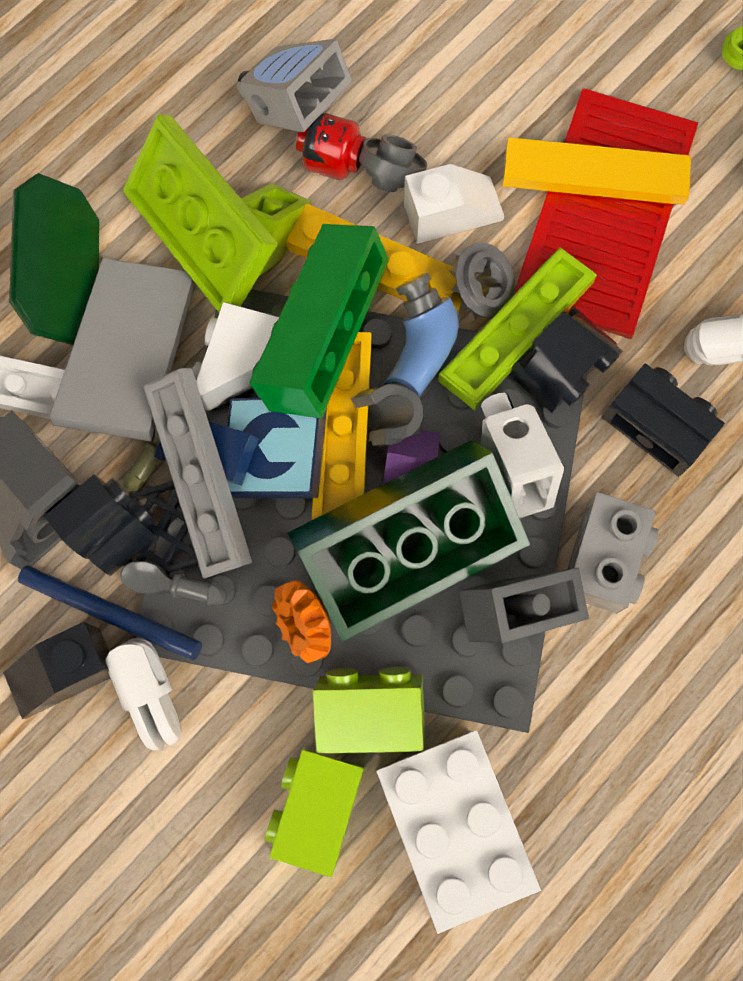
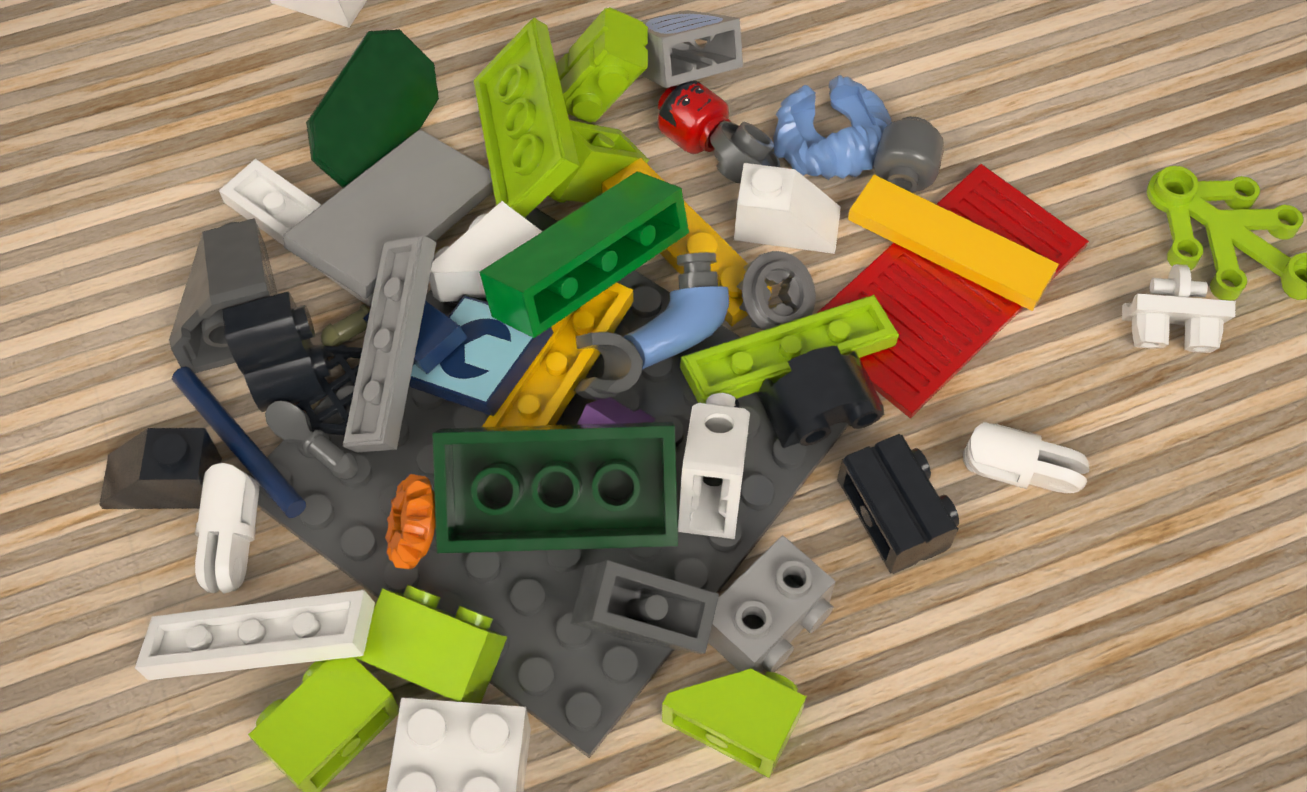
camera: 25 degrees right, 15 degrees down
(227, 773) = (256, 635): none -> white plate
(238, 129) = (603, 64): none -> lime brick
(456, 136) = (841, 152): none -> medium blue piece
(527, 105) = (909, 153): none -> dark grey head
(633, 648) = (739, 716): none -> lime slope

